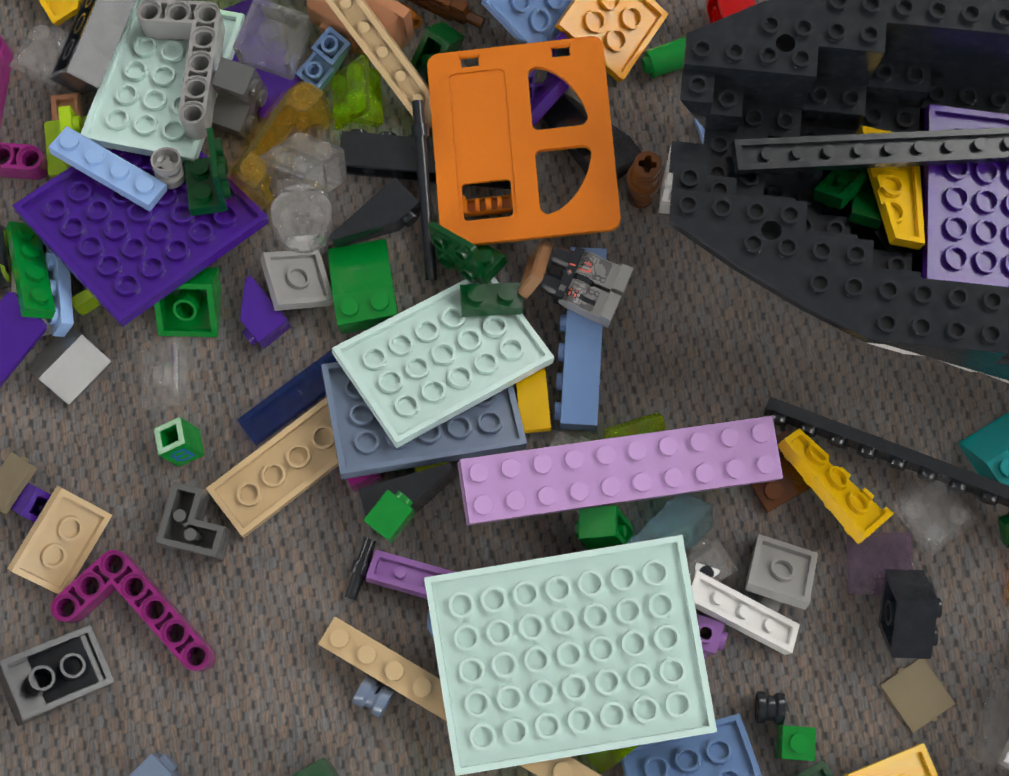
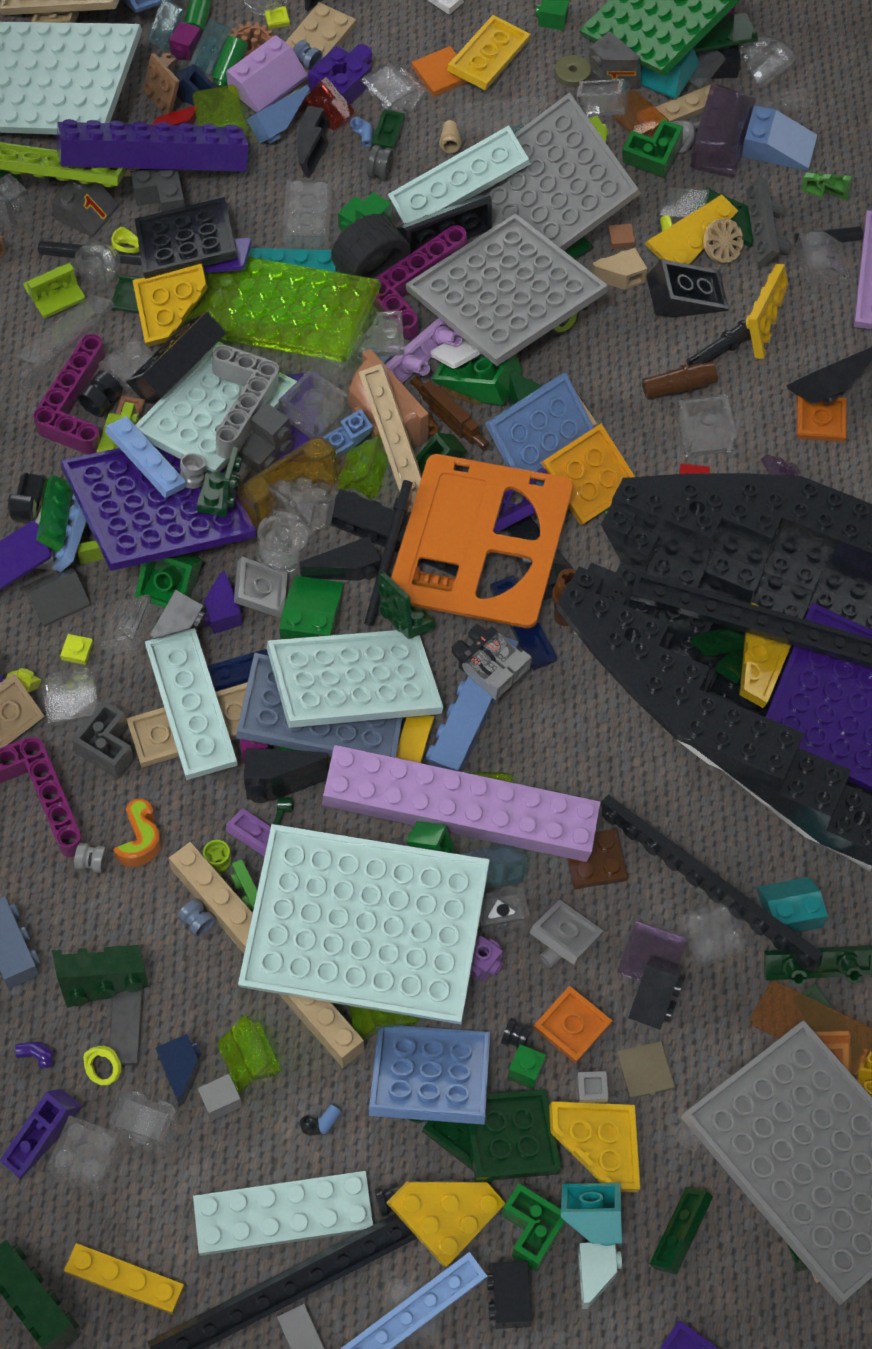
camera: 15 degrees right, 15 degrees down
(25, 102) = (100, 393): none -> black wheel
(73, 480) = (27, 679): none -> neon yellow plate
(117, 421) = (76, 649): none -> neon yellow plate
(132, 481) = (70, 694): none -> clear slope
(179, 442) = (119, 676): green brick -> none
(217, 351) = (178, 616): none -> flat silver slope
(229, 667) = (90, 857): none -> light grey wheel
(272, 448) = (191, 704): none -> light aqua plate
(281, 618) = (148, 837): none -> orange animal
(360, 568) = (223, 819): black bar -> none
(364, 615) = (216, 851): none -> lime wheel
(390, 515) = (263, 772): green brick -> none
(406, 634) = (242, 879): none -> bright green plate
(418, 528) = (284, 804): none -> dark green hand
(490, 299) = (409, 649): dark green plate -> none
(535, 268) = (452, 638): medium nougat tile -> none
(622, 242) = (531, 639): none -> clear blue plate
(743, 613) = (520, 950): white plate -> none
(824, 673) = (572, 1024): none -> orange plate
(832, 485) = (643, 901): yellow wing -> none
(874, 744) = (591, 1087): none -> light grey panel

